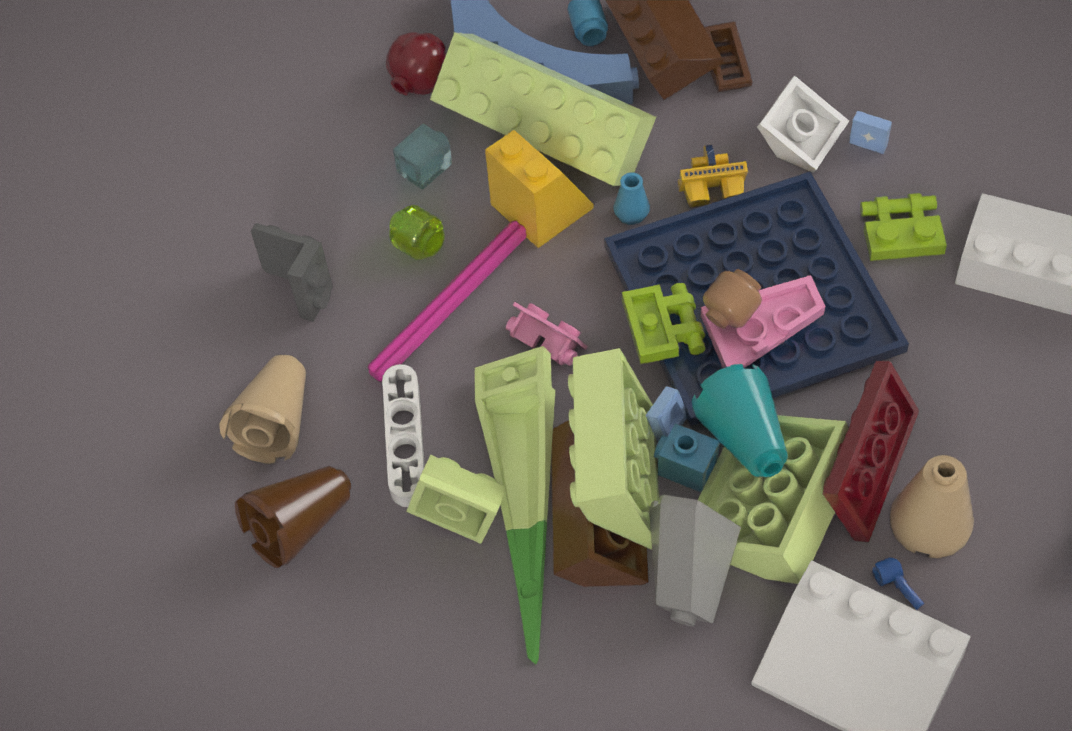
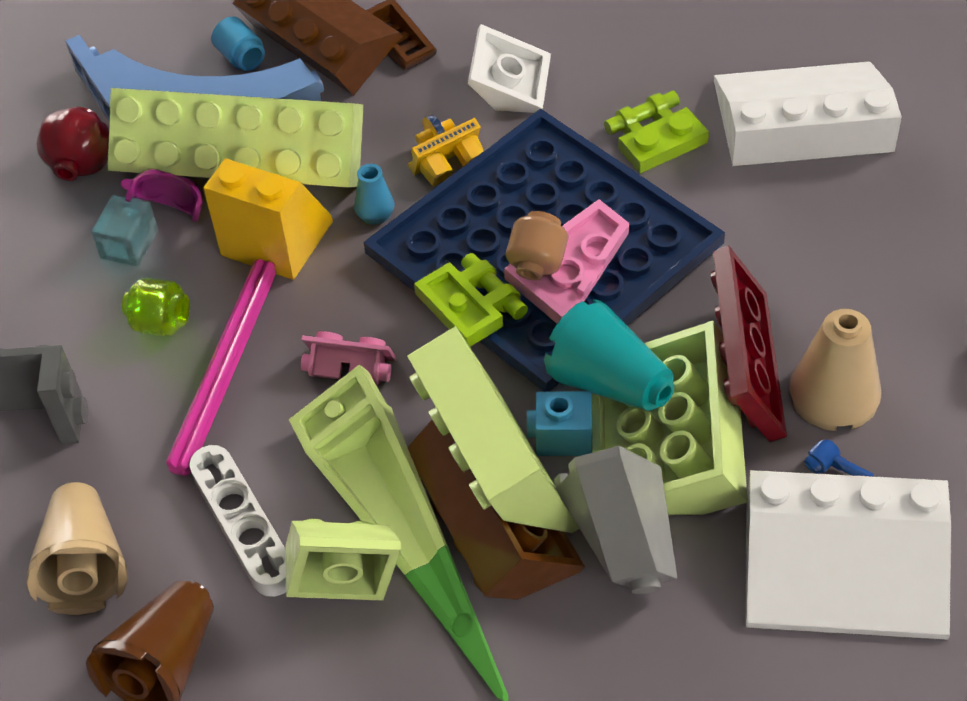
camera: 25 degrees left, 5 degrees down
(465, 129) = (165, 189): none -> magenta helmet
(666, 412) = (519, 388): light blue tile -> none
(870, 132) = (579, 54): light blue tile -> none

